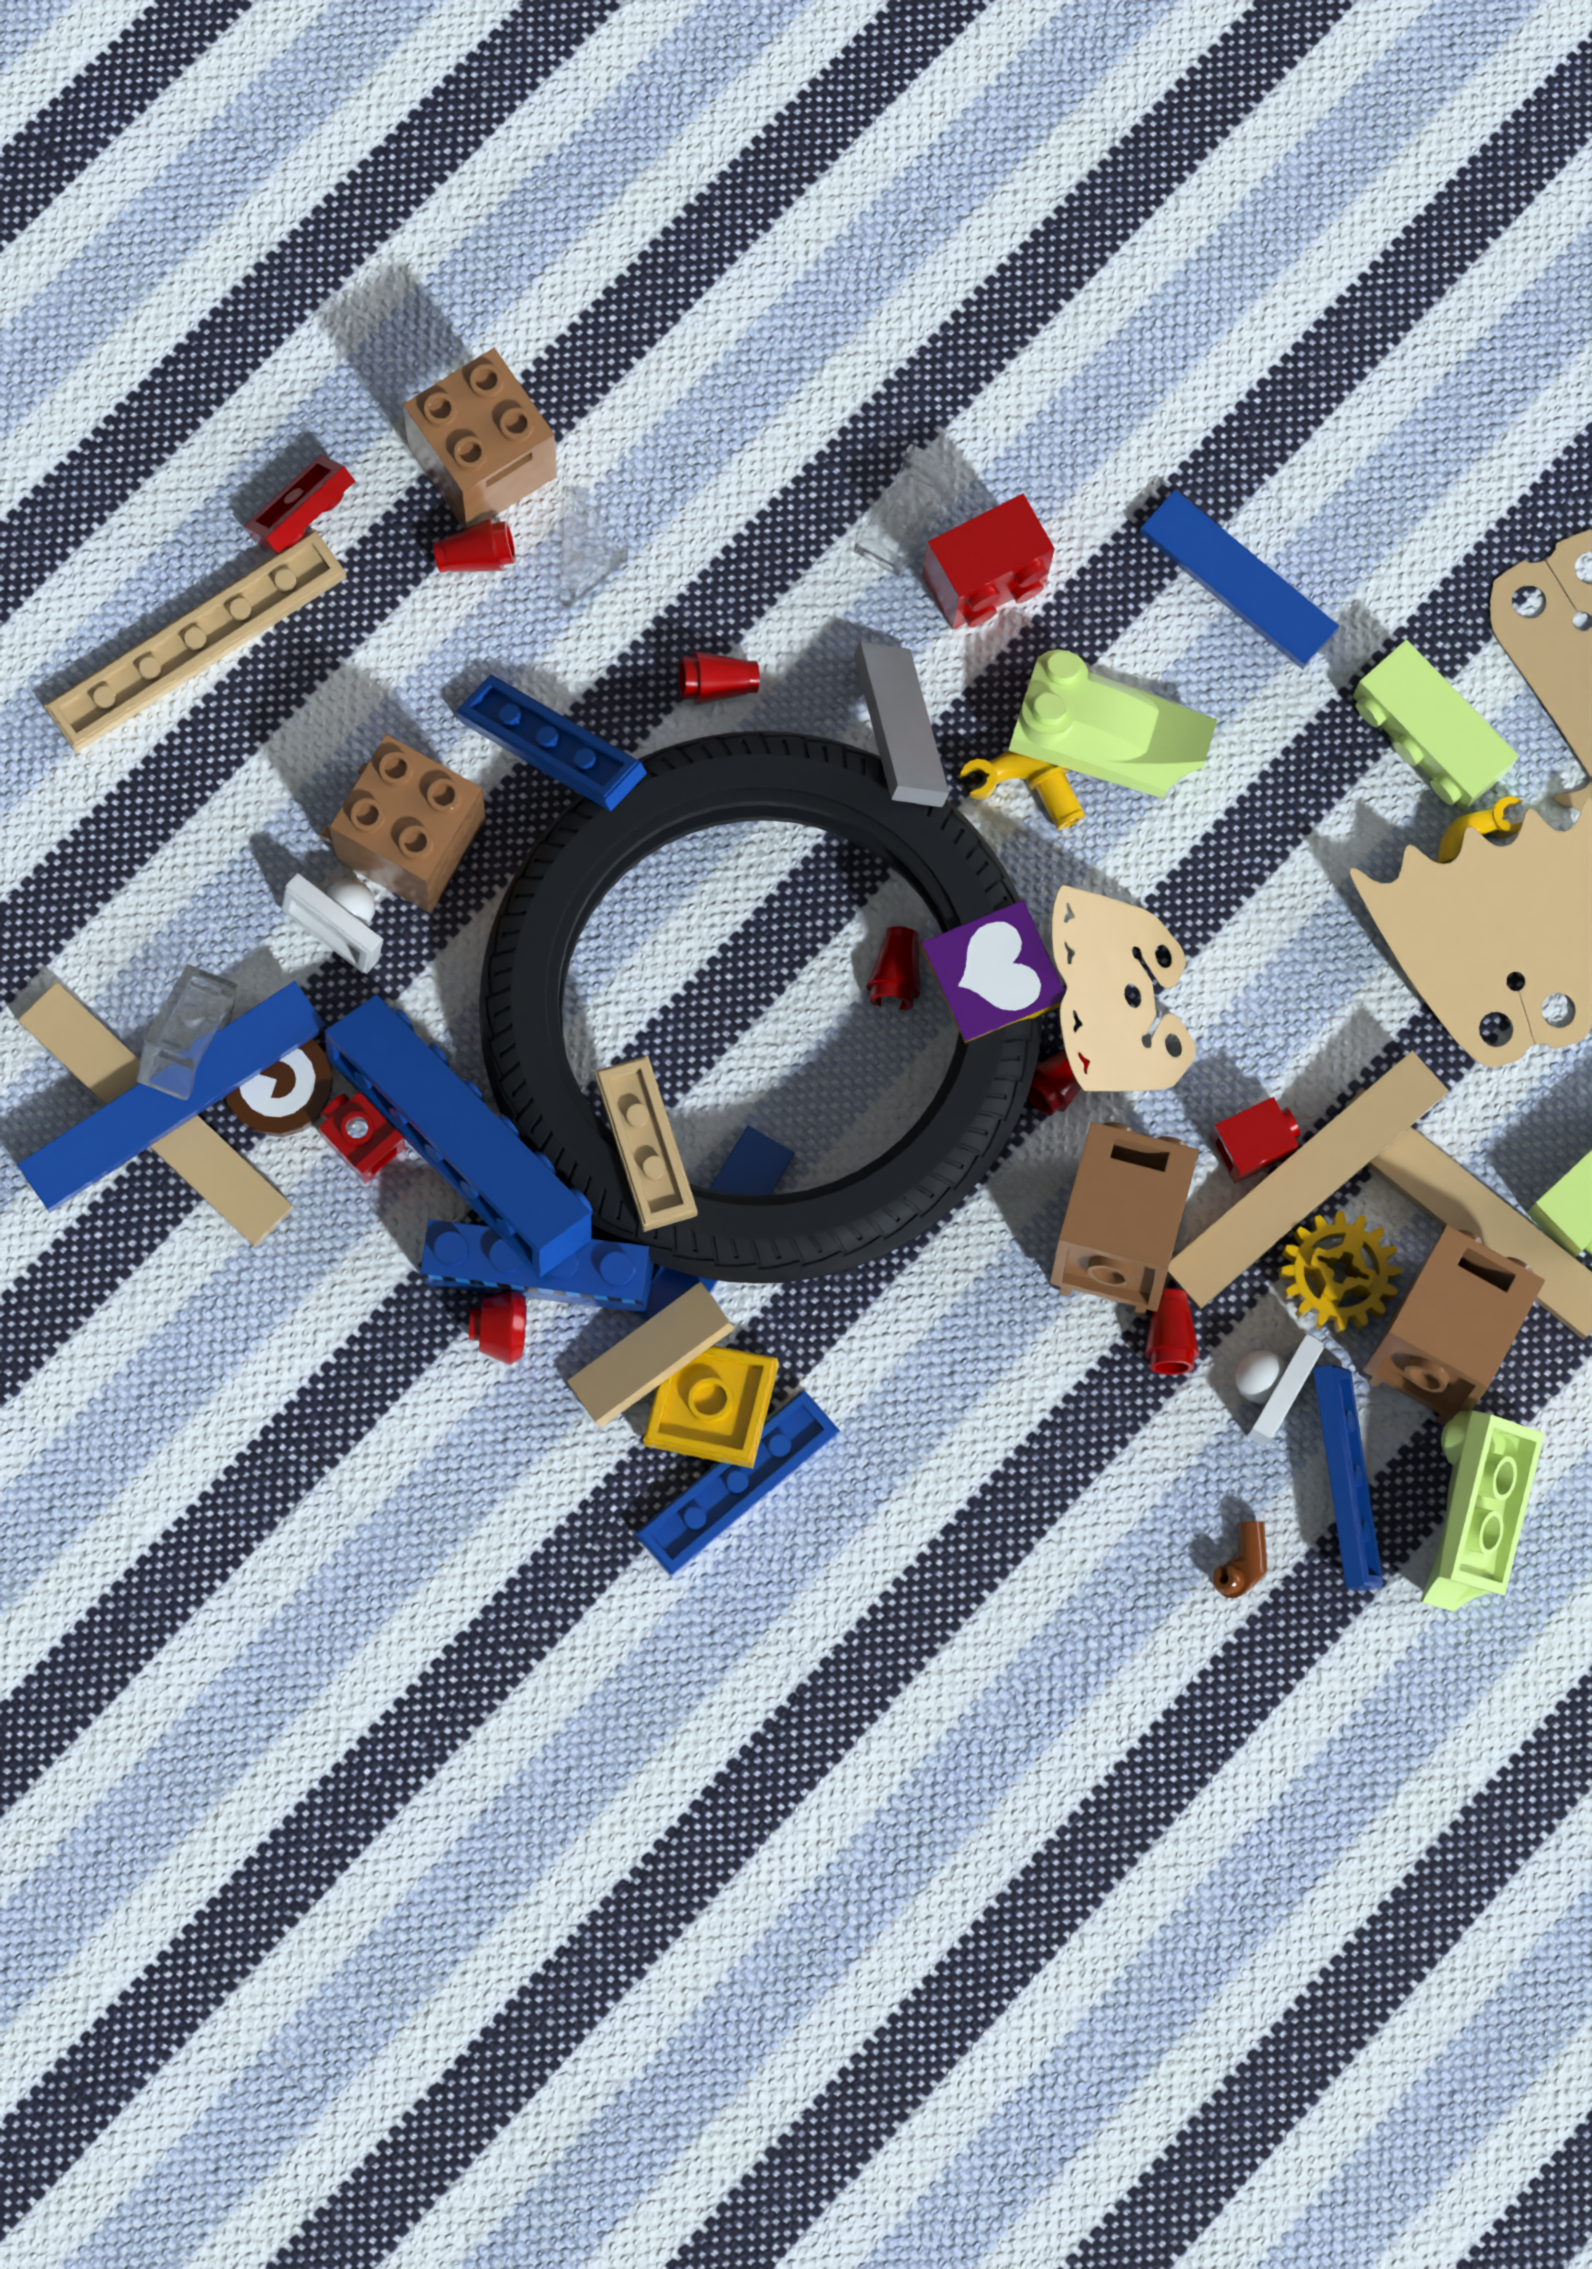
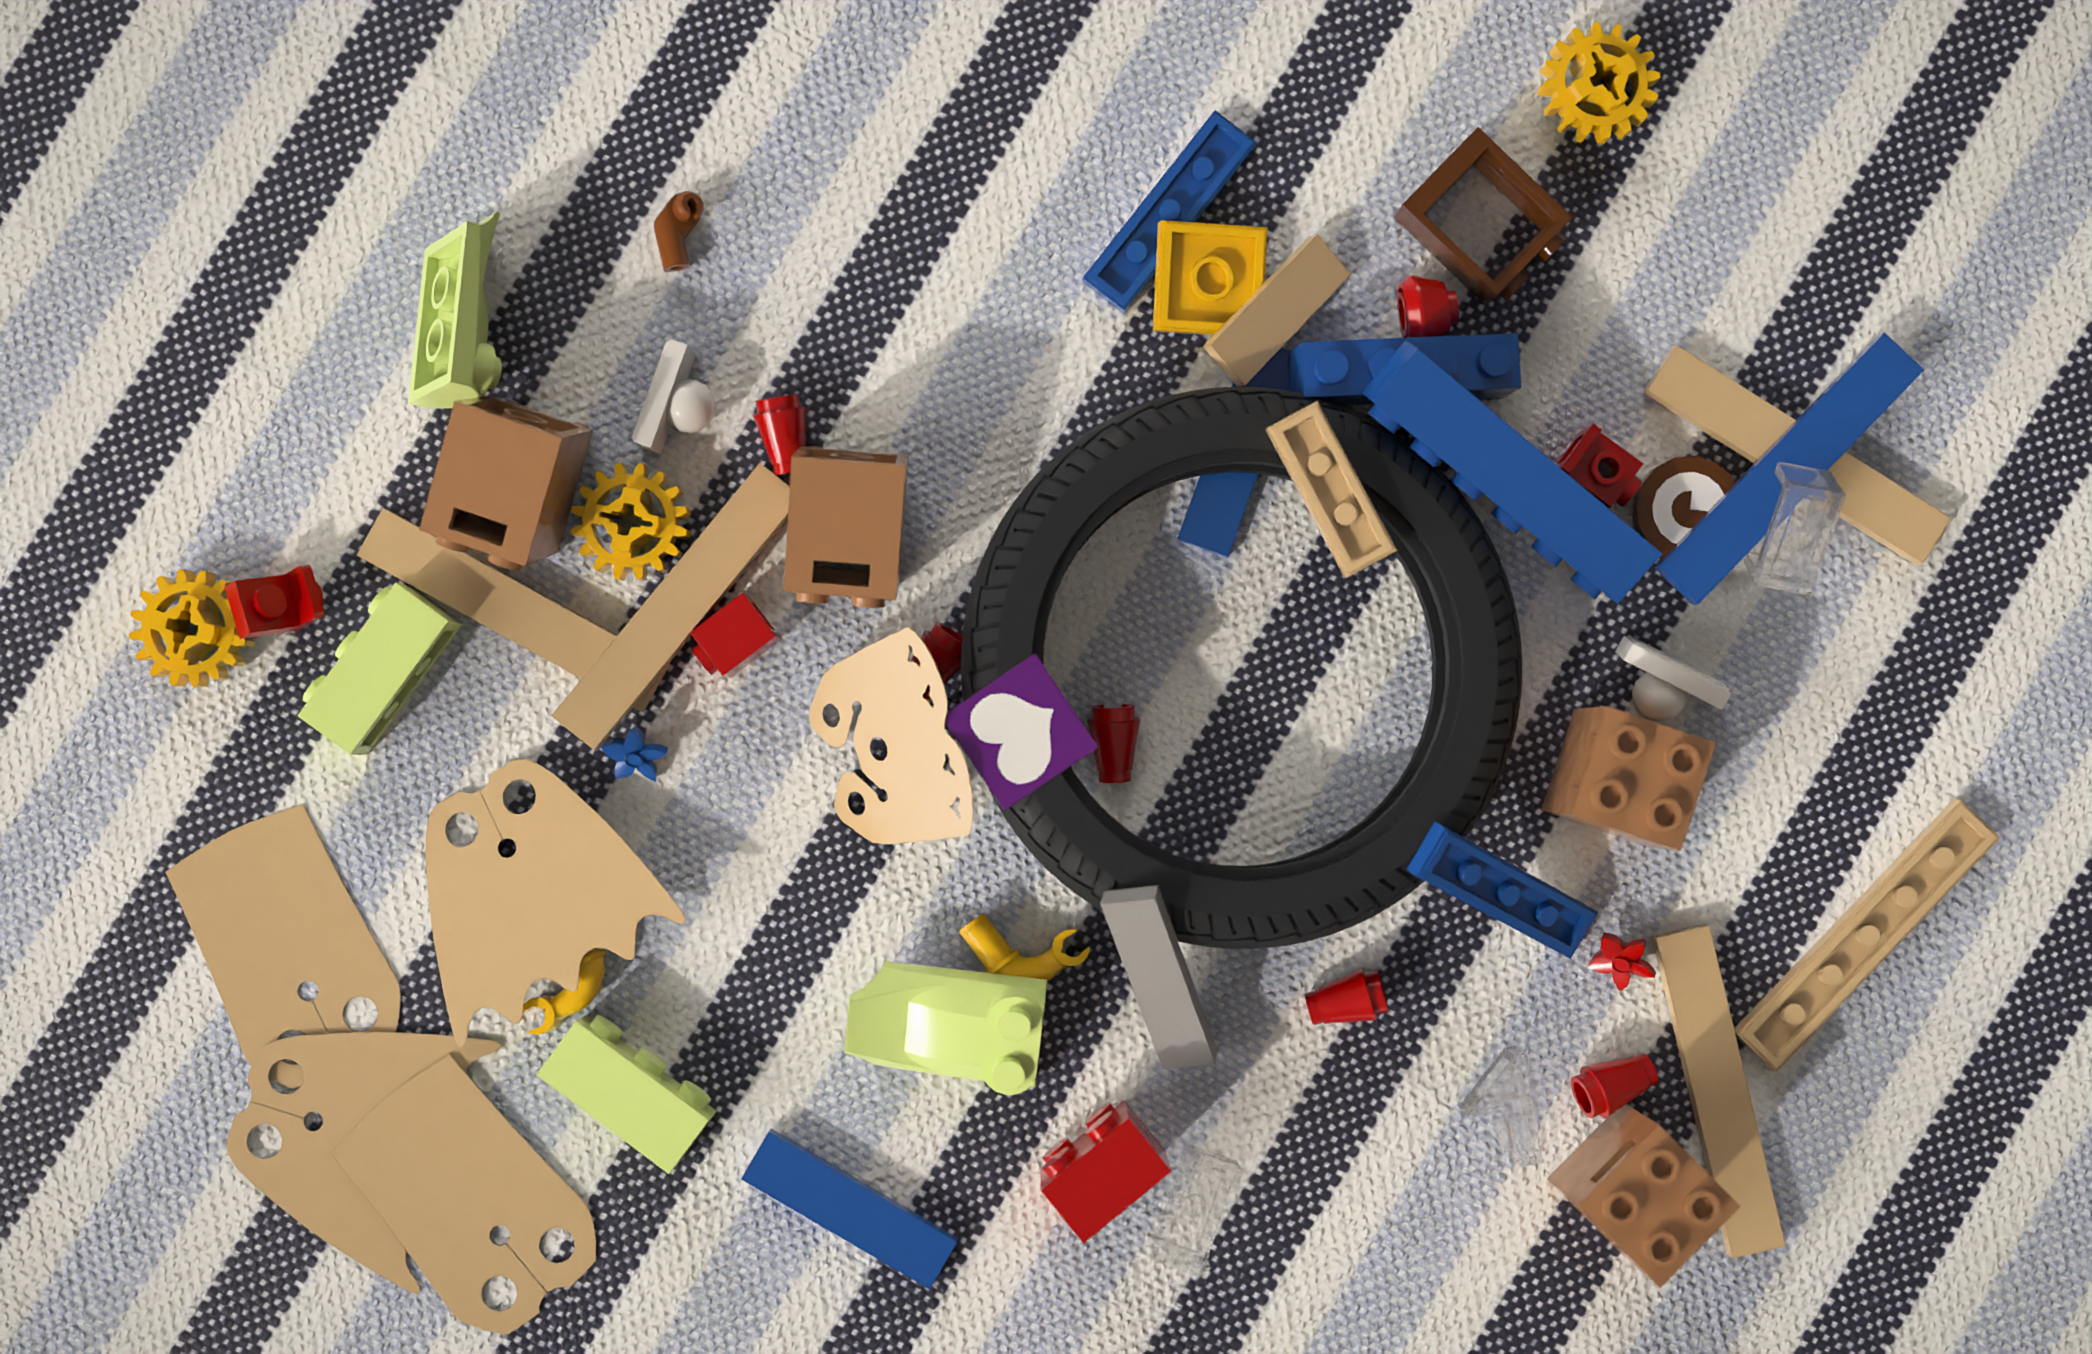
camera: 175 degrees right, 10 degrees up
(248, 1529) = (1598, 59): none -> yellow gear
(299, 504) = (1807, 1080): red plate -> none
(374, 526) = (1718, 1087): none -> tan tile
(441, 663) = (1621, 960): none -> red plant
(454, 1453) = (1514, 184): none -> reddish brown window
(1348, 1478) = (589, 323): blue tile -> none
(1376, 1046) = (633, 754): none -> blue plant

